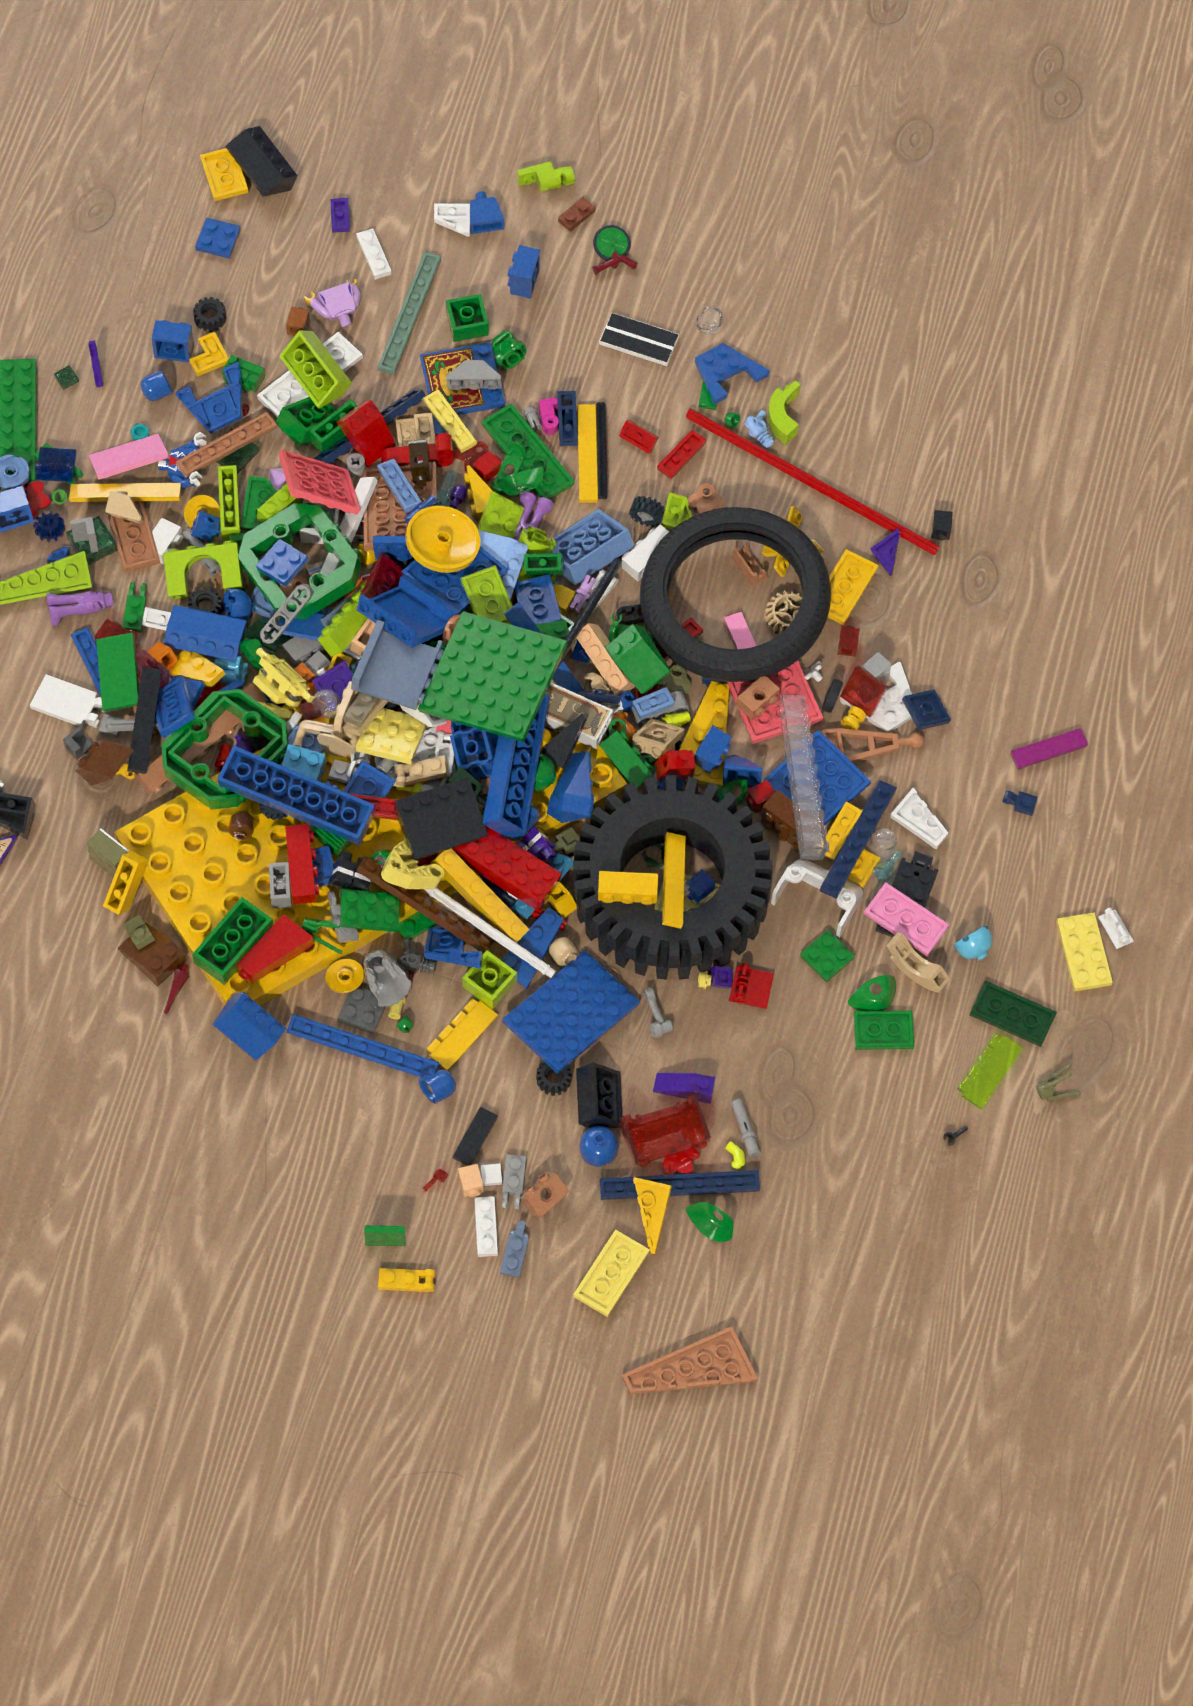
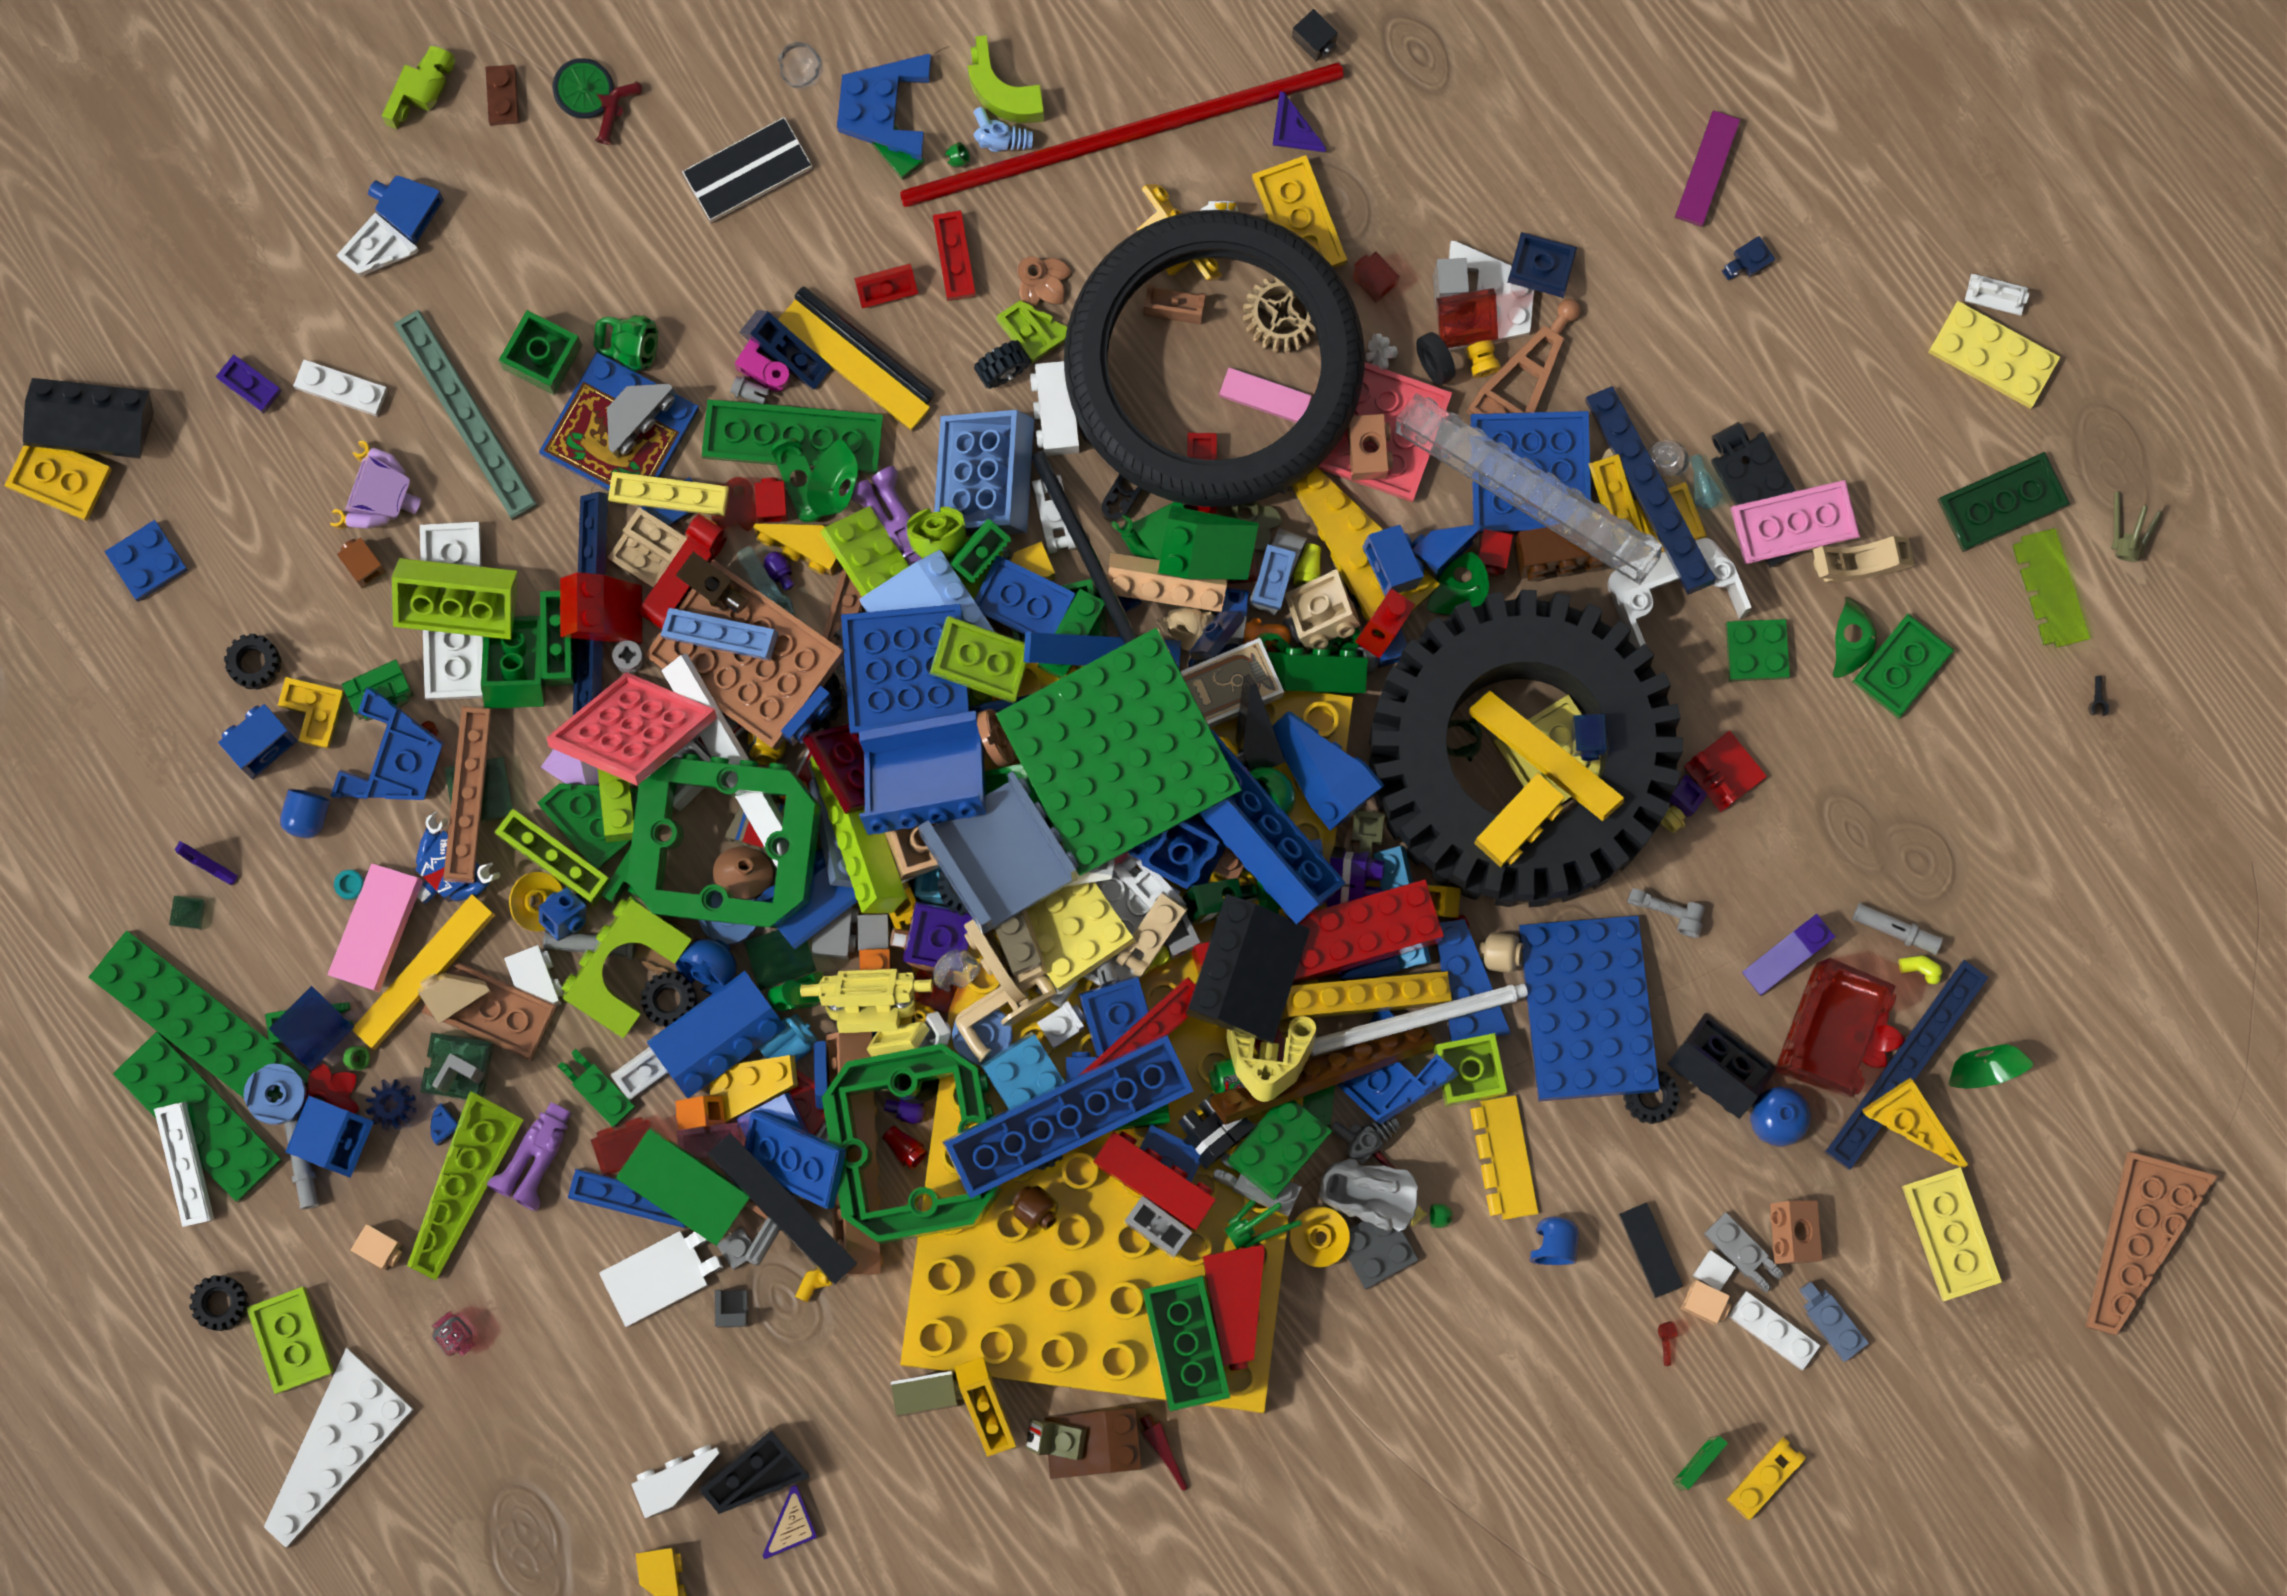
camera: 50 degrees left, 15 degrees up
(102, 761) = (795, 1302): reddish brown slope -> none
(248, 1025) = (1298, 1408): blue slope -> none
(282, 562) = (715, 868): plate -> none
(286, 613) = (792, 921): light grey beam -> none
(361, 1047) = (1428, 1289): blue tile -> none
(428, 503) = (785, 639): blue pin -> none
(442, 539) = (858, 649): yellow dish -> none
(524, 271) = (536, 226): blue brick -> none
(582, 593) = (1050, 535): lavender pin -> none
(918, 819) = (1673, 396): white wing -> none
(975, 944) = (1887, 471): medium azure cylinder -> none

